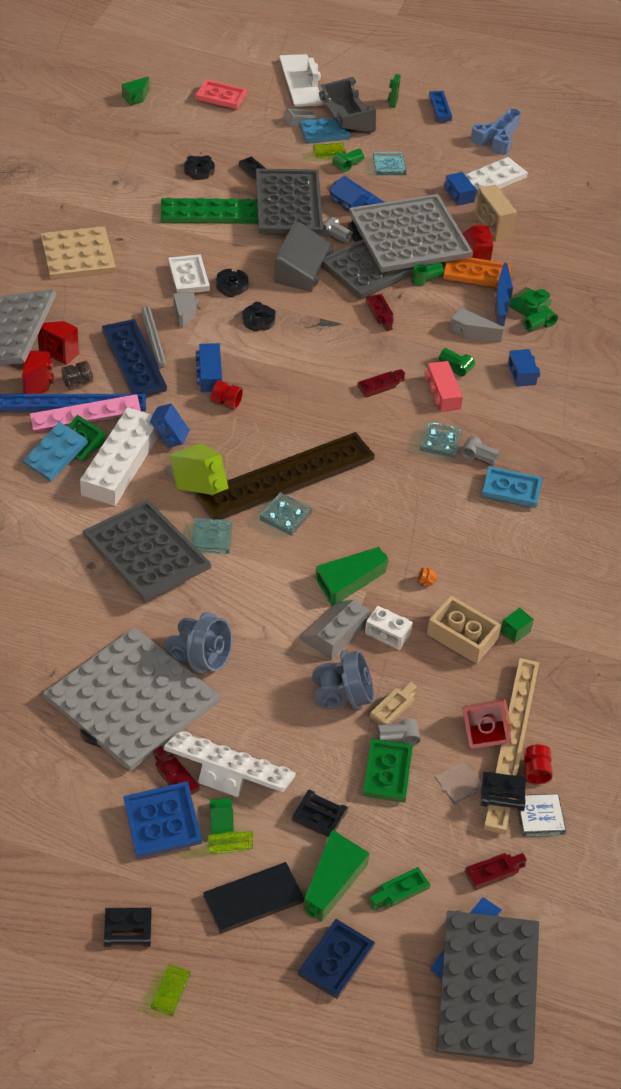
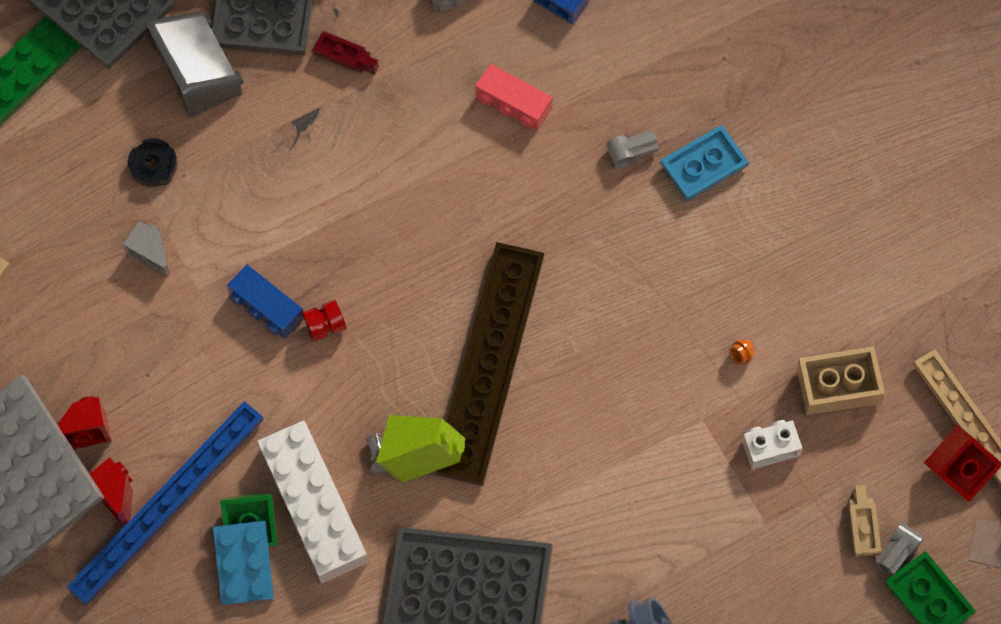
camera: 40 degrees left, 20 degrees up
(79, 374) = (149, 445): clear smoke wheel -> none
(90, 411) = (215, 486): bright pink plate -> none
(134, 358) = (174, 365): dark blue plate -> none
(153, 337) = (158, 316): light grey axle -> none
(169, 425) = (323, 420): blue brick -> none
(188, 274) = (97, 196): white plate -> none
(212, 535) = (500, 503): clear light blue plate -> none
(265, 315) = (228, 170): black plate -> none
(286, 513) = (540, 408): clear light blue plate -> none
(336, 627) = (725, 492): light grey slope -> none
(349, 574) = (673, 425): green slope -> none
(356, 681) = (818, 533): sand blue piece -> none
(381, 382) = (446, 151): dark red hinge -> none
(441, 439) = (581, 168): clear light blue plate -> none
(460, 364) = (497, 50): green piece -> none
(517, 625) = (874, 326): green brick -> none

